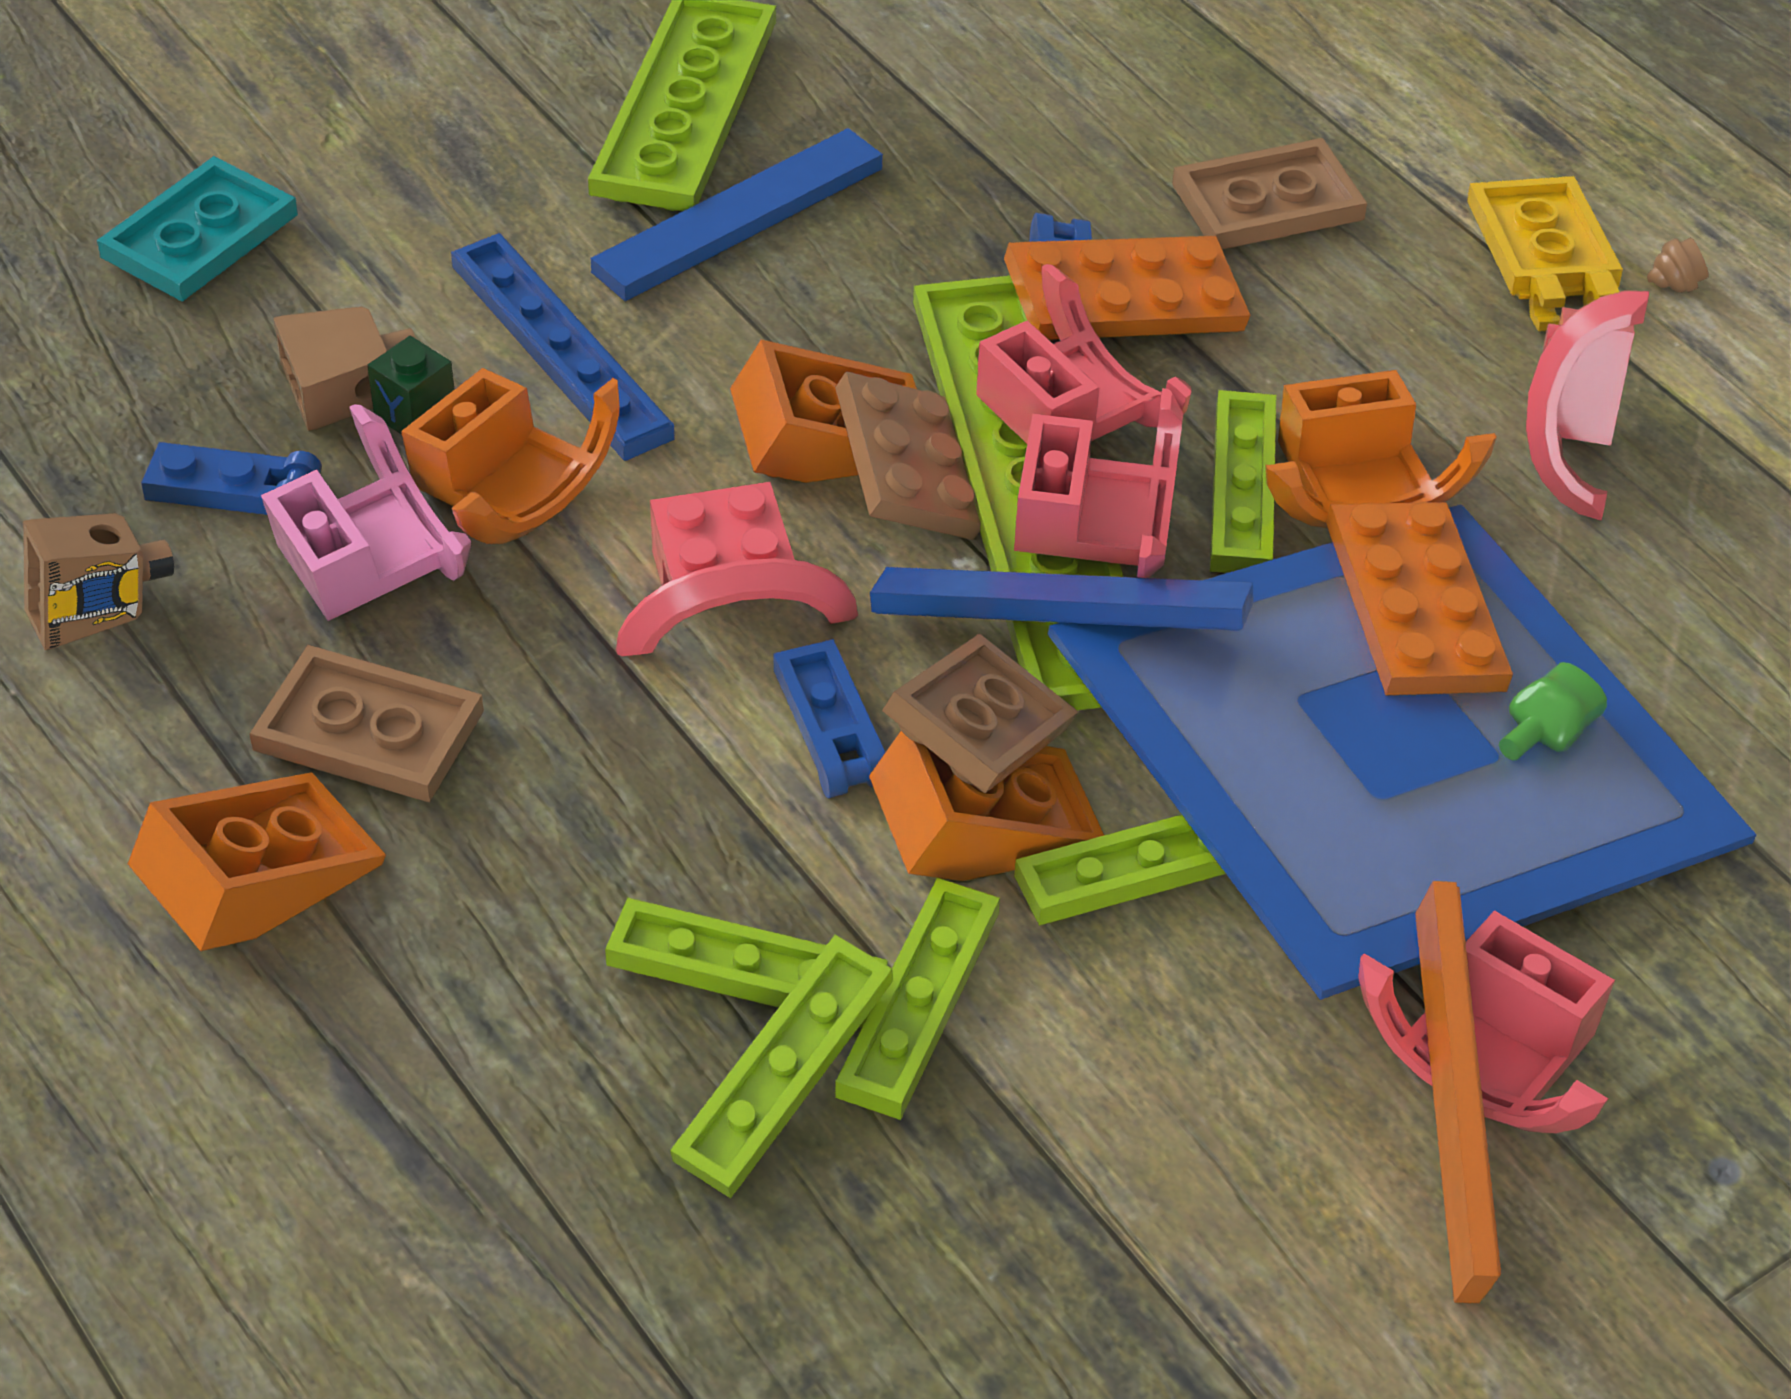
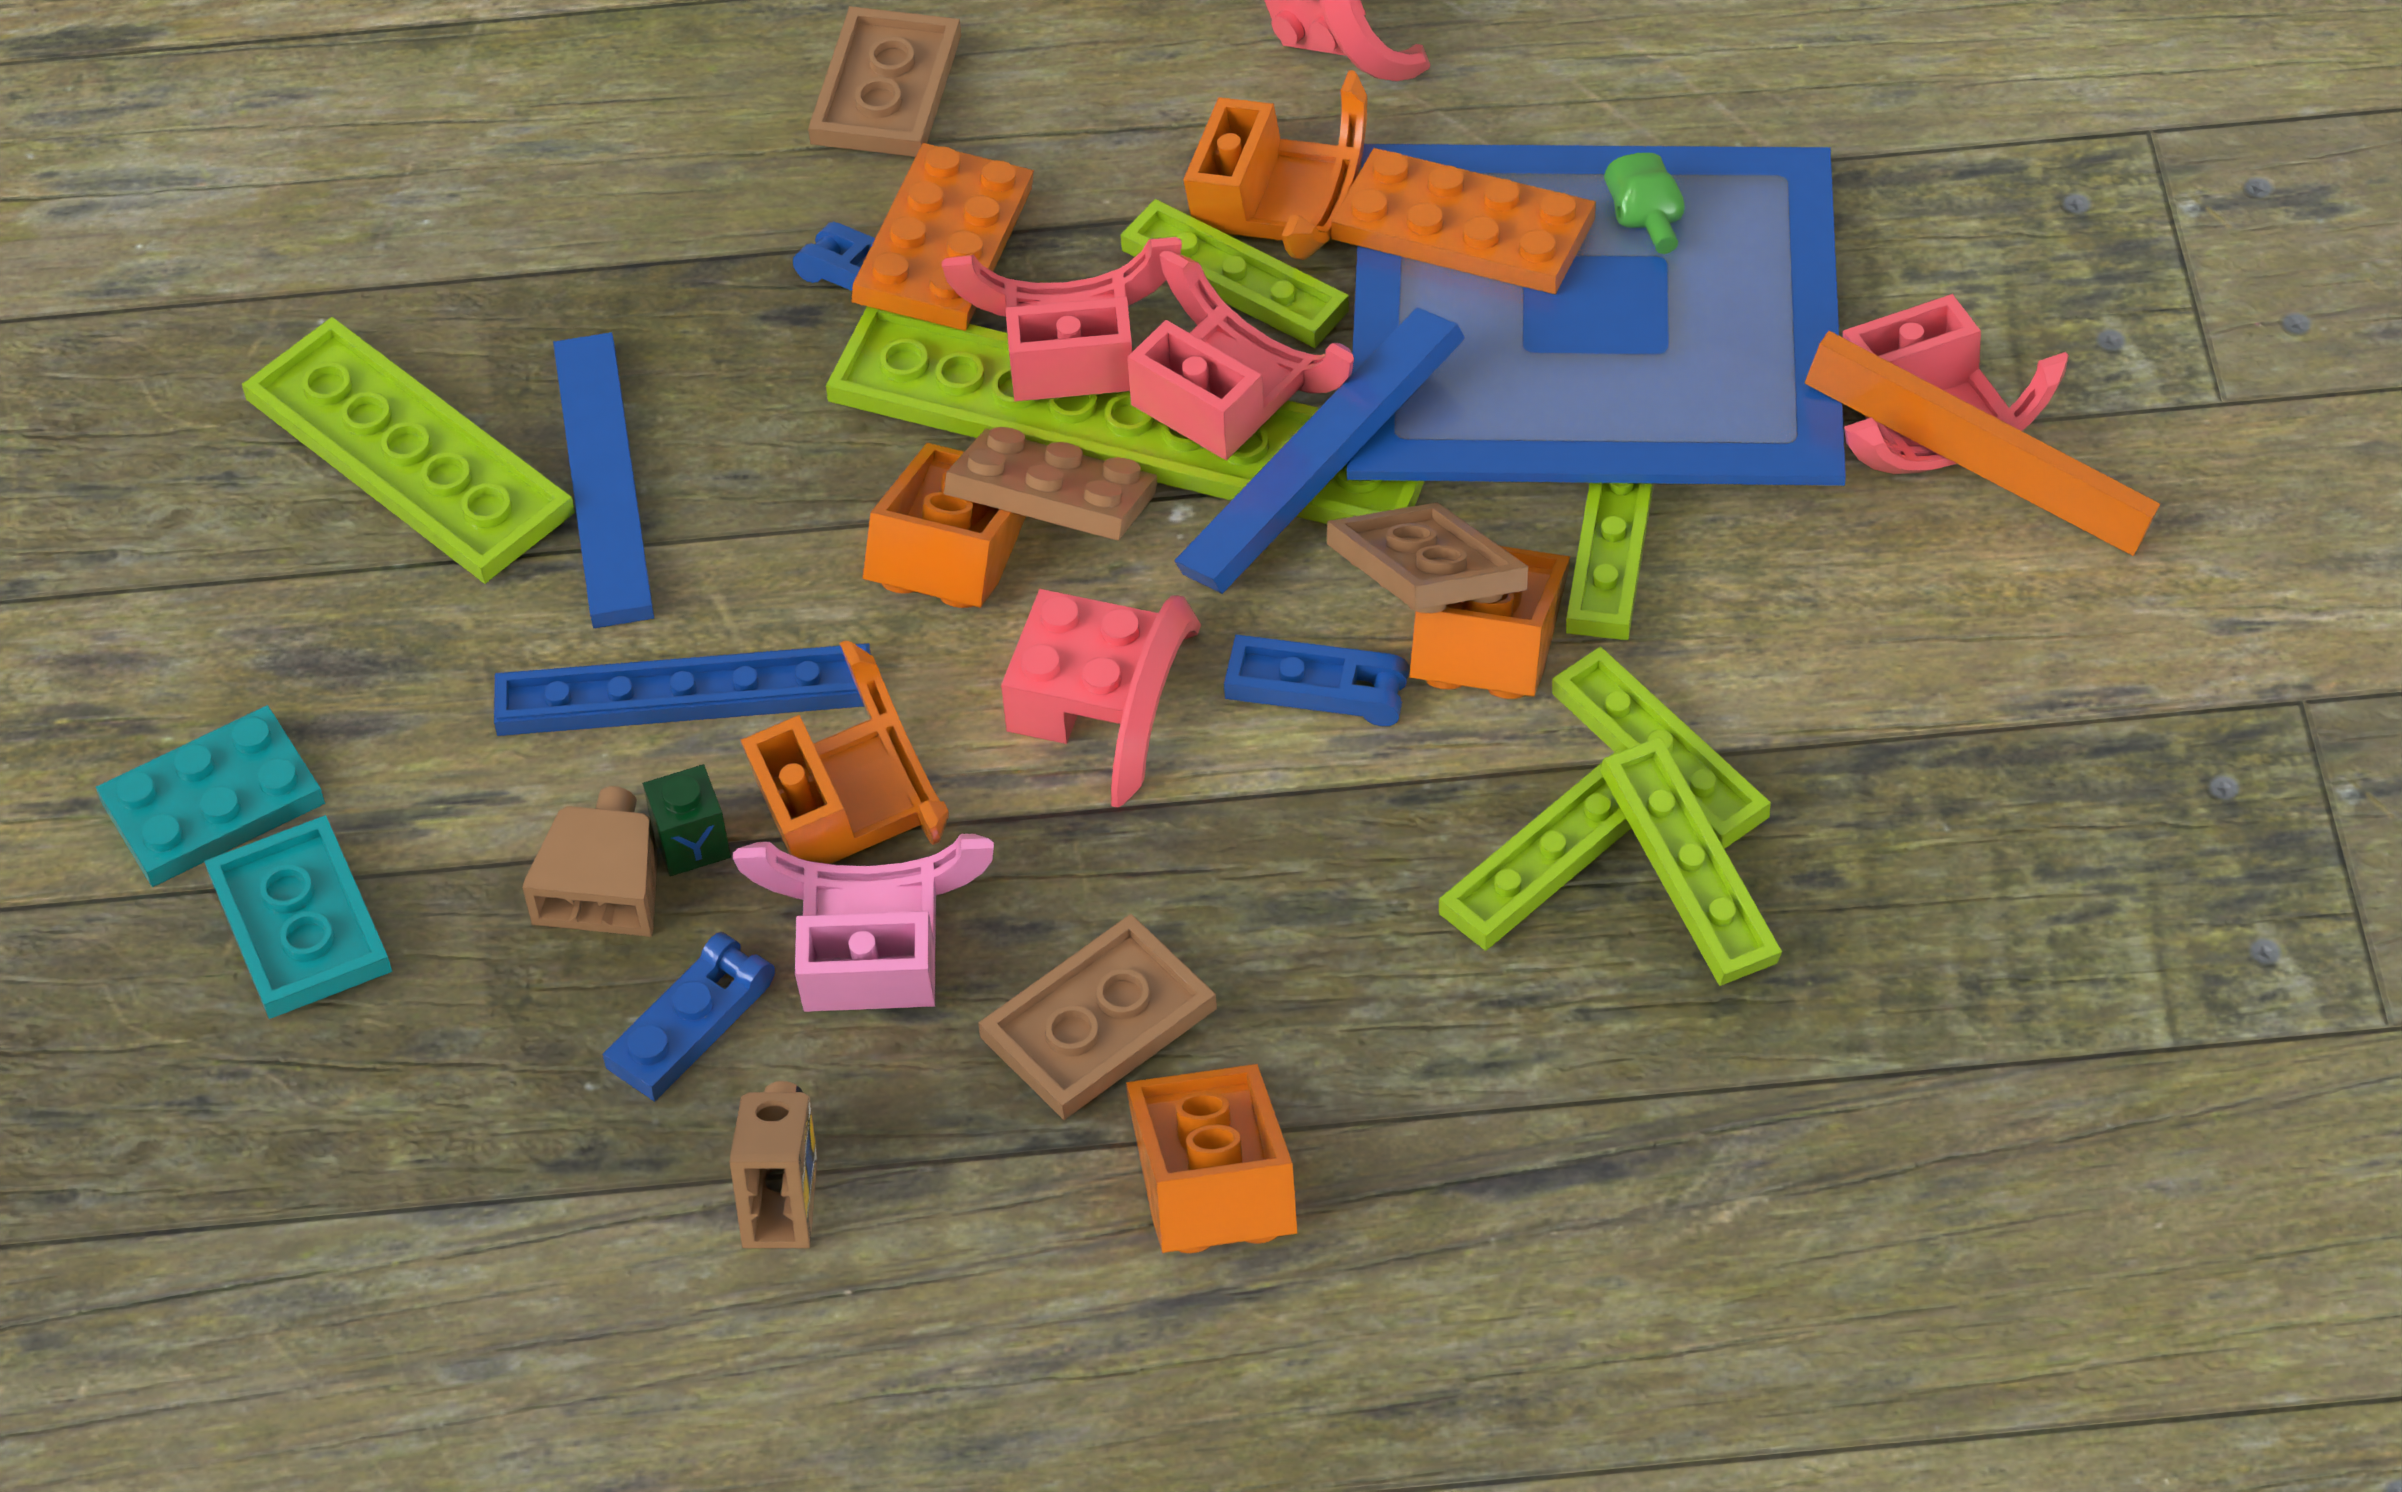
camera: 55 degrees left, 5 degrees up
(293, 143) = (210, 795): none -> teal plate

